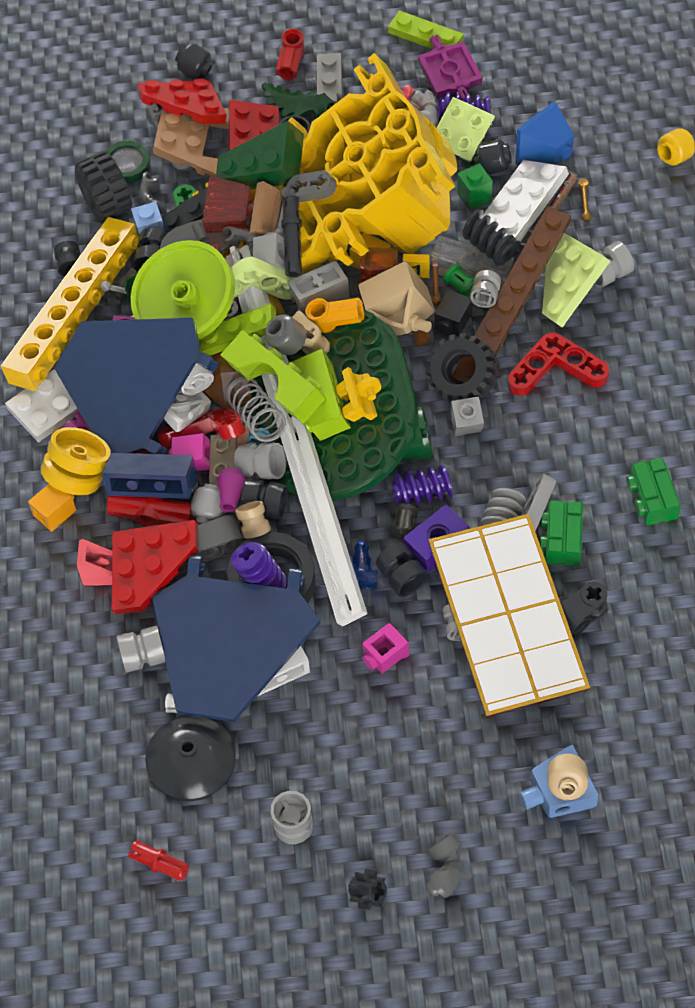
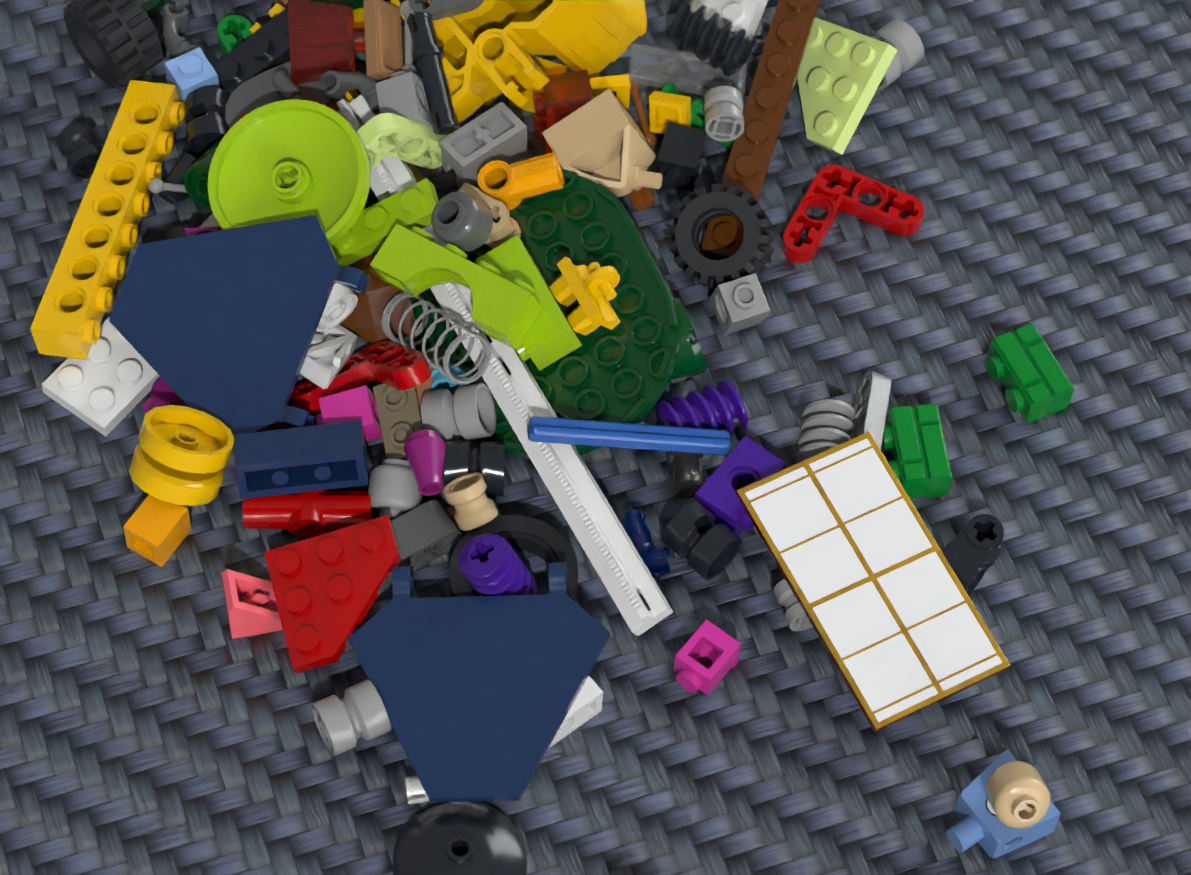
camera: 20 degrees left, 0 degrees up
(365, 492) = (628, 435): none -> blue axle
(451, 281) = (668, 108): none -> yellow tile

